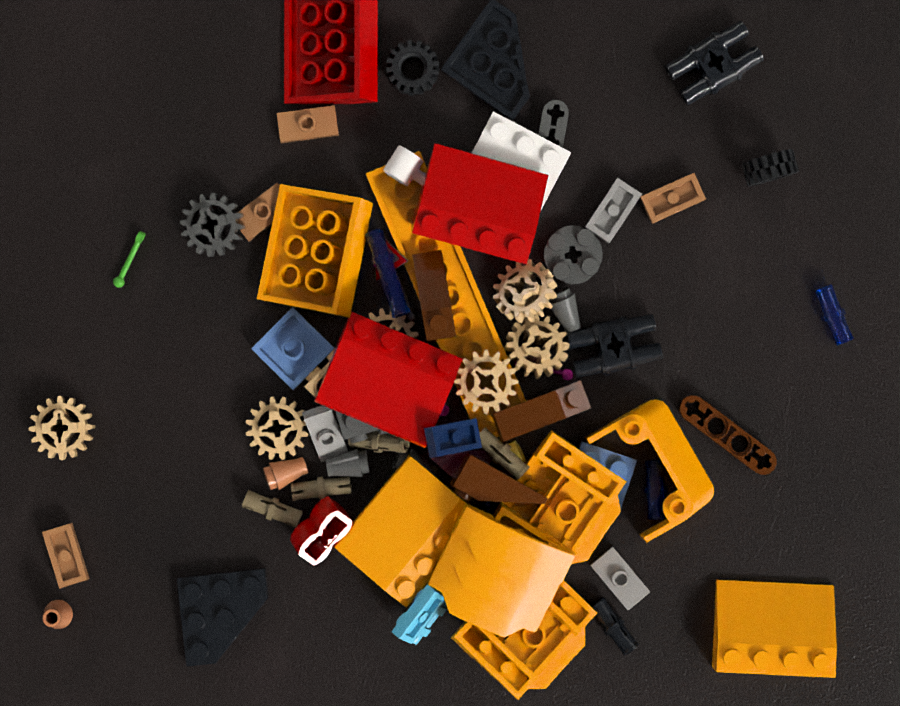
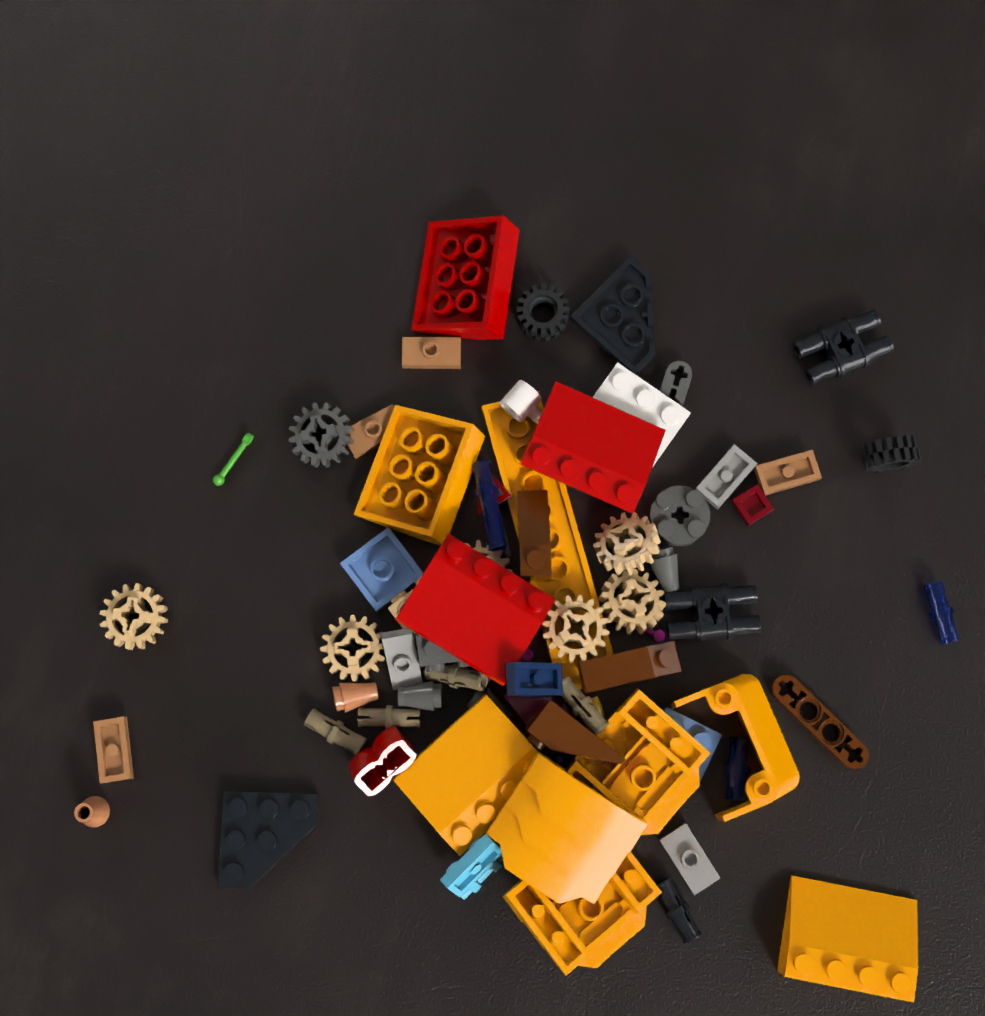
camera: 10 degrees right, 10 degrees down
(642, 235) = (752, 505): none -> dark red plate

